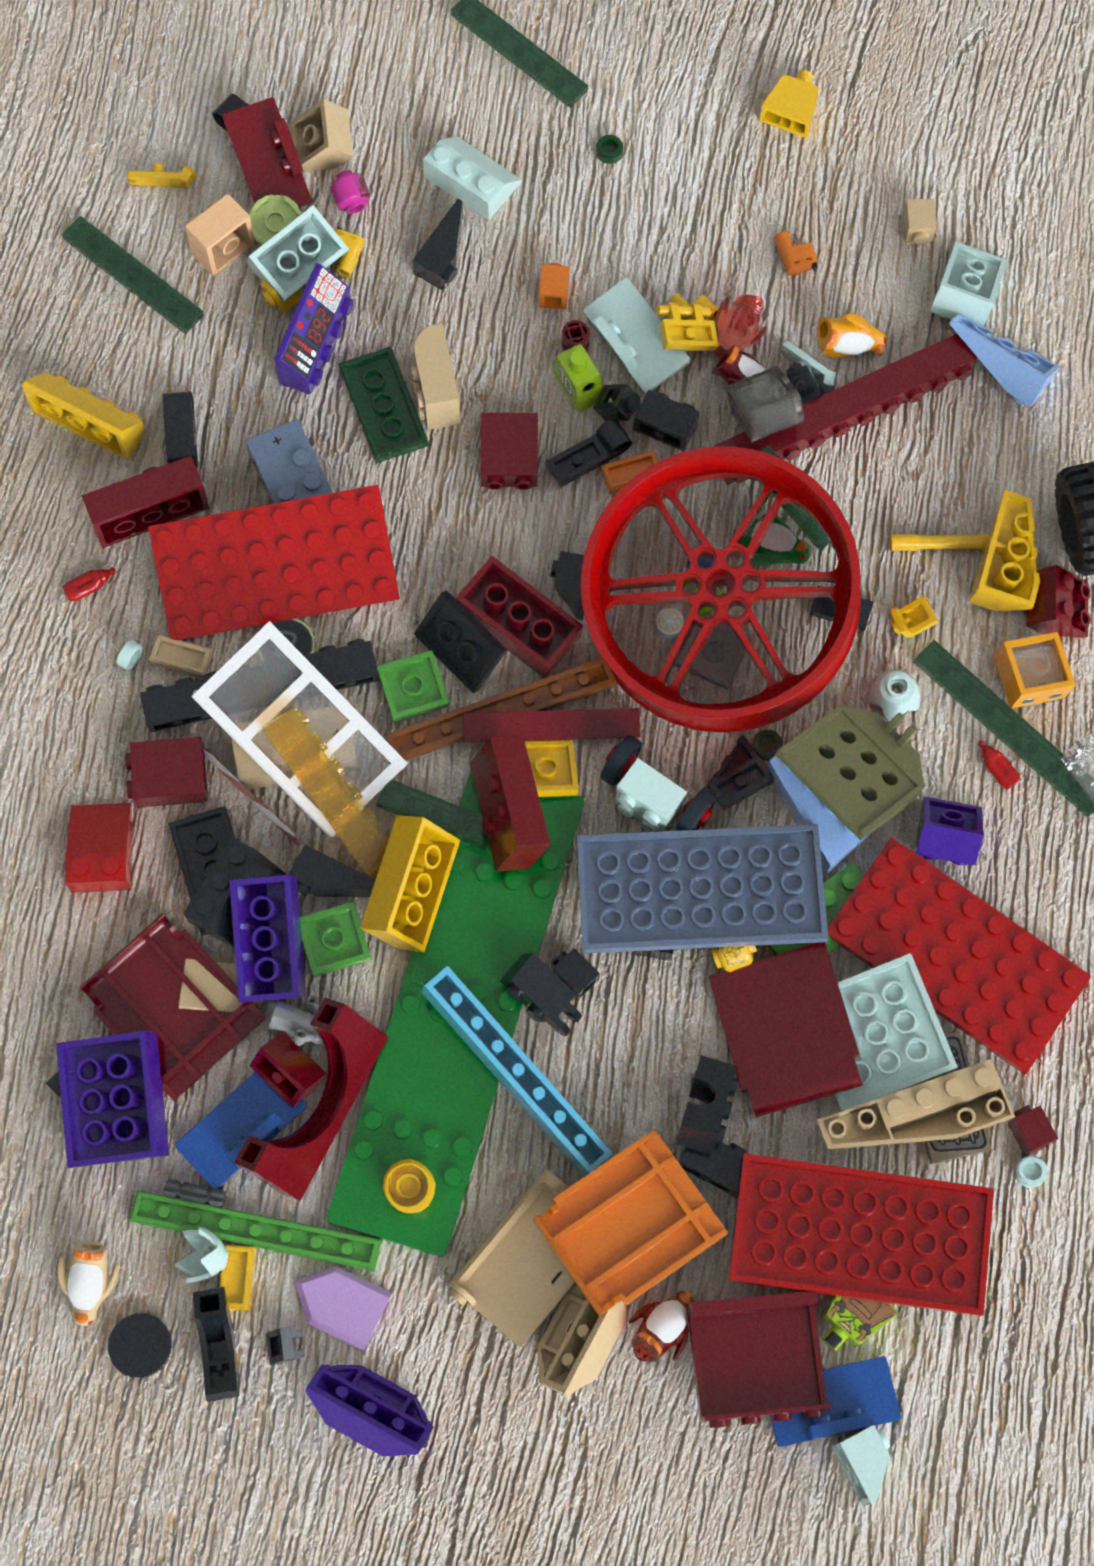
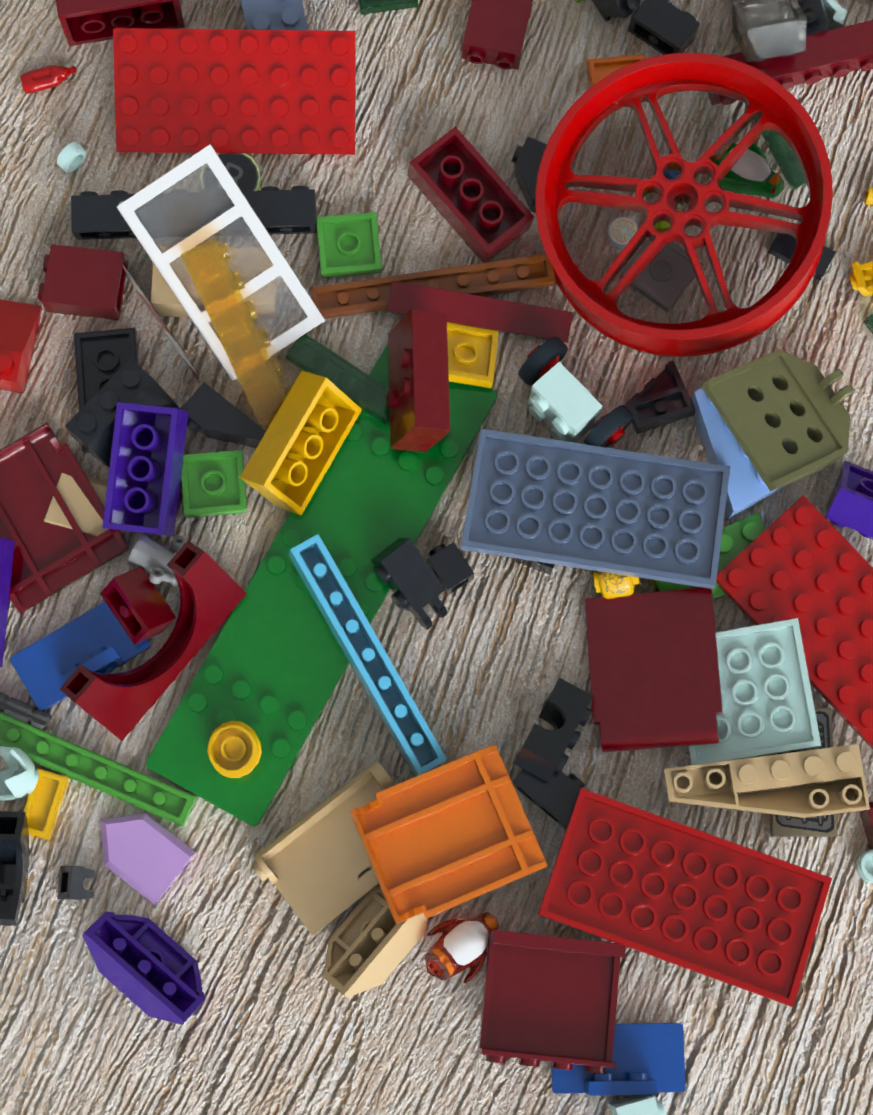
camera: 10 degrees right, 5 degrees up
(181, 656) = (123, 168): tan tile -> none
(460, 641) = (405, 208): black tile -> none
(590, 453) = (577, 46): black plate -> none
(767, 744) = (695, 374): tile -> none
(854, 1320) = (658, 981): torso -> none
(891, 702) = (832, 357): light aqua piece -> none

